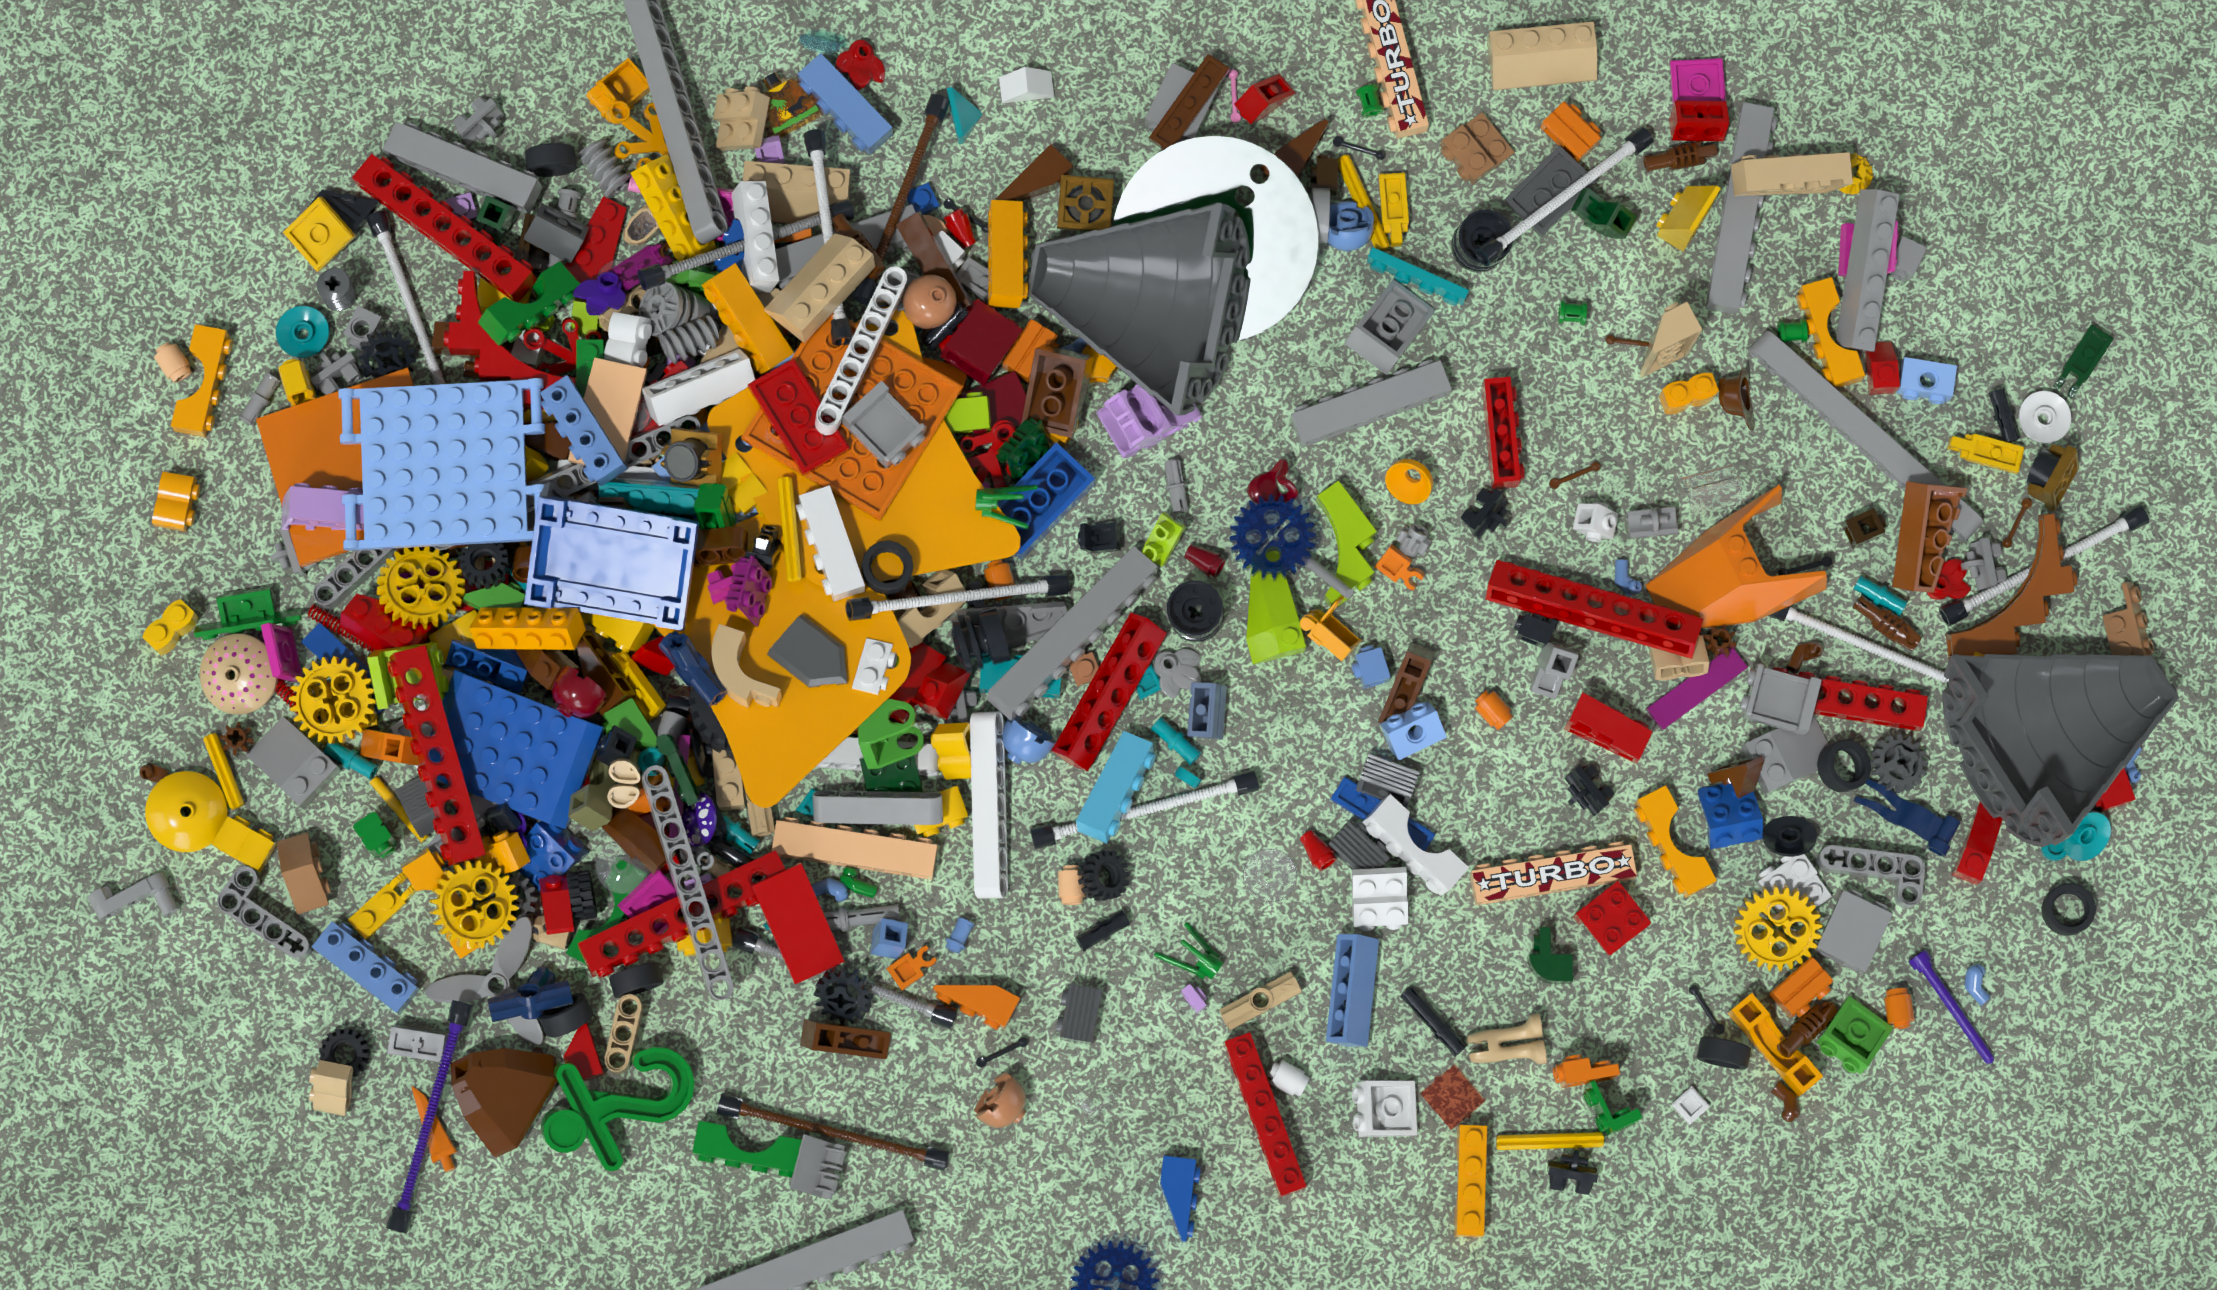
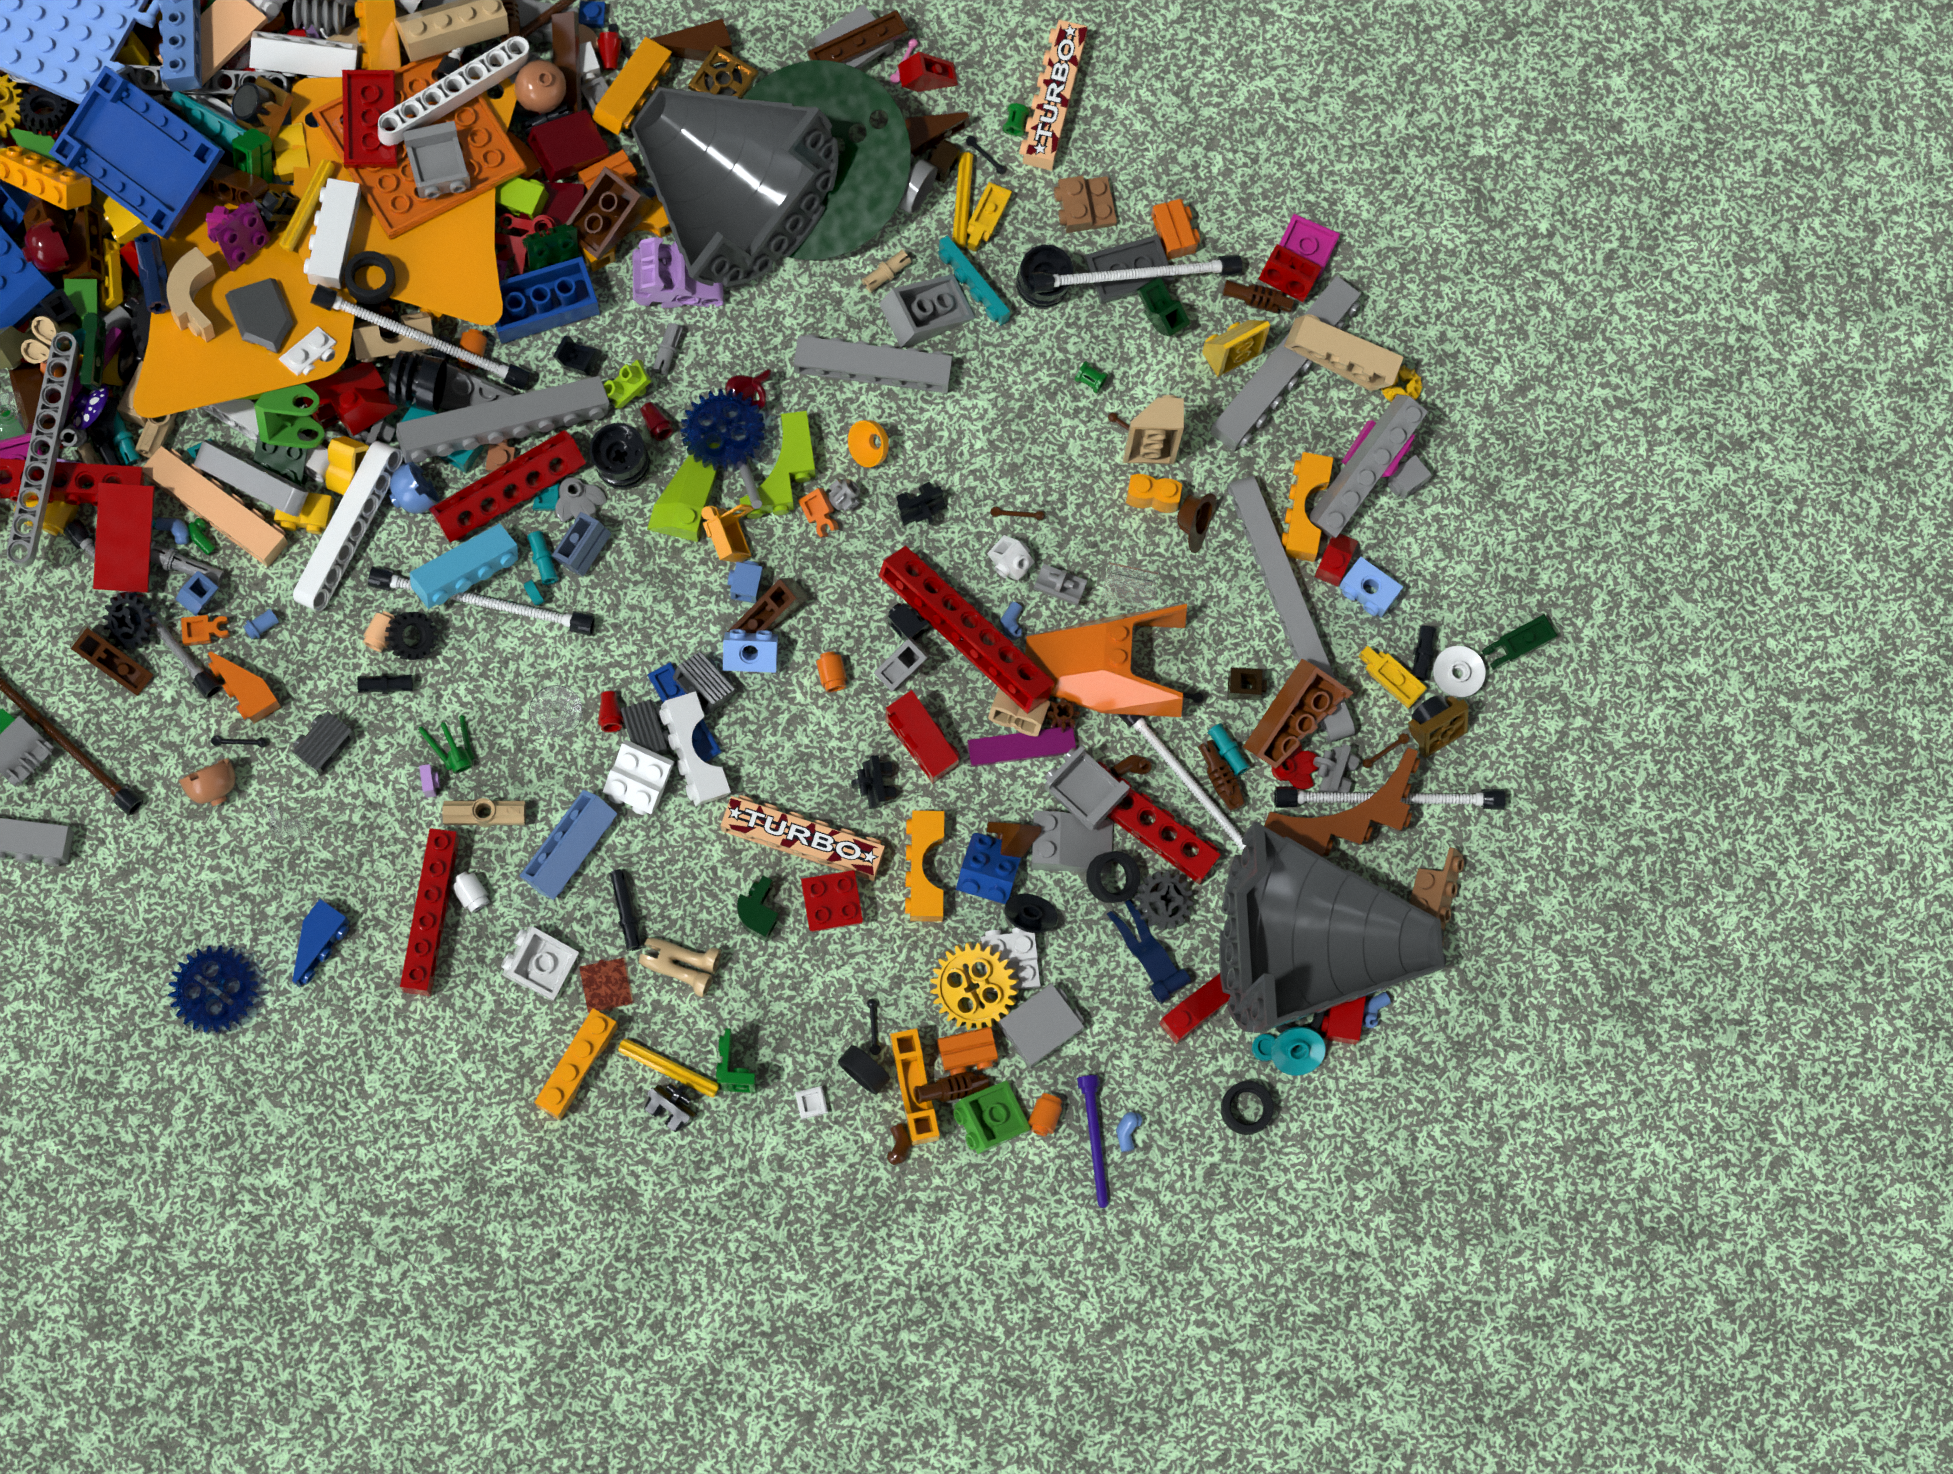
camera: 25 degrees right, 5 degrees down
(988, 498) = (492, 268): green plant -> none
(1332, 308) = (886, 271): none -> tan pin
(1349, 226) = (936, 209): medium blue cylinder -> none
(1501, 433) = (969, 445): red brick -> none
(1542, 55) = (1185, 155): tan slope -> none
(1578, 1071) = (723, 1014): orange plate -> none
(1792, 331) = (1275, 488): green bush -> none
(1870, 869) = (1086, 980): light grey beam -> none

